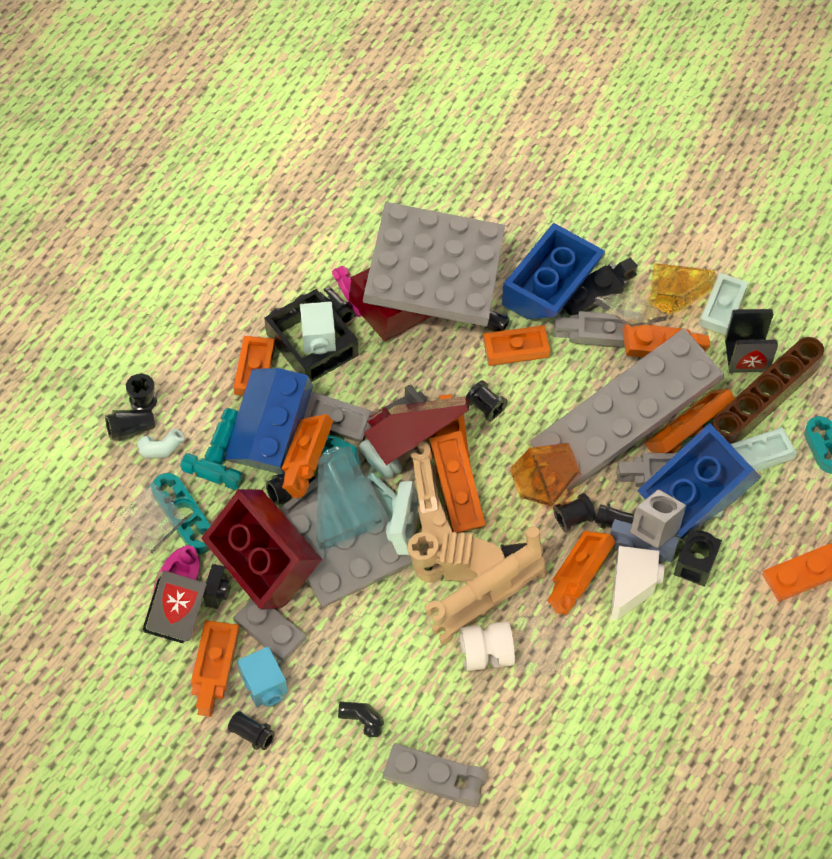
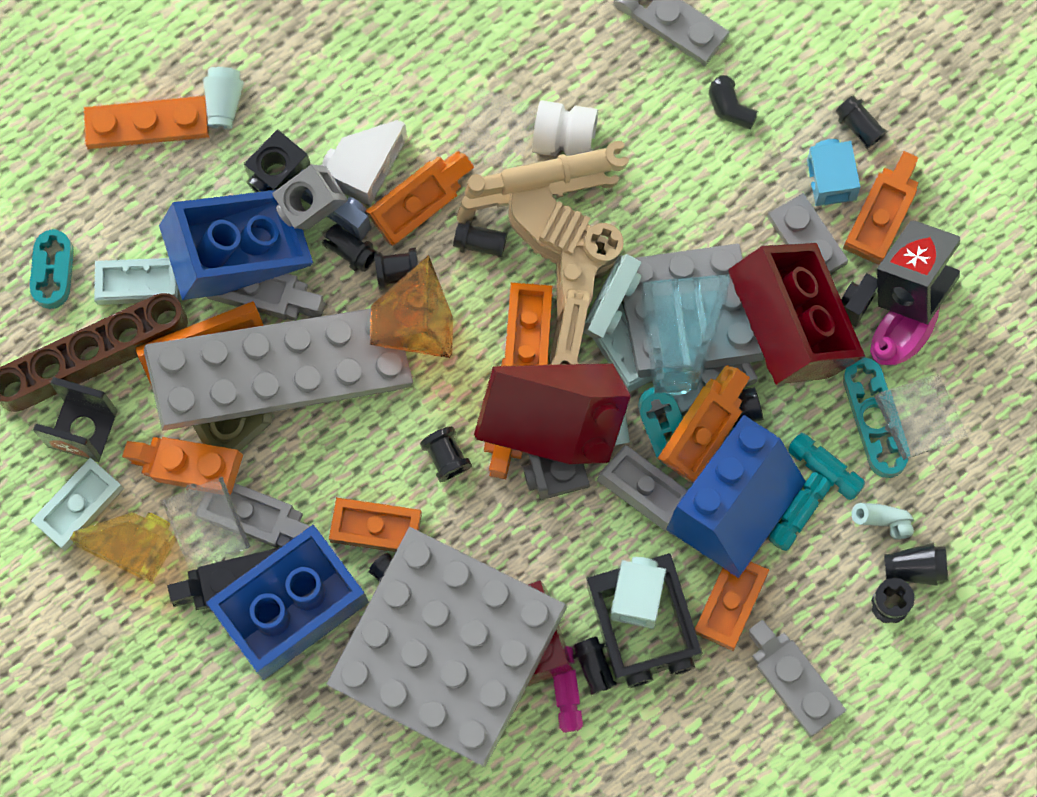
camera: 155 degrees left, 15 degrees up
(198, 335) = (795, 680): none -> light grey hinge
(767, 602) = (222, 95): none -> light aqua cone

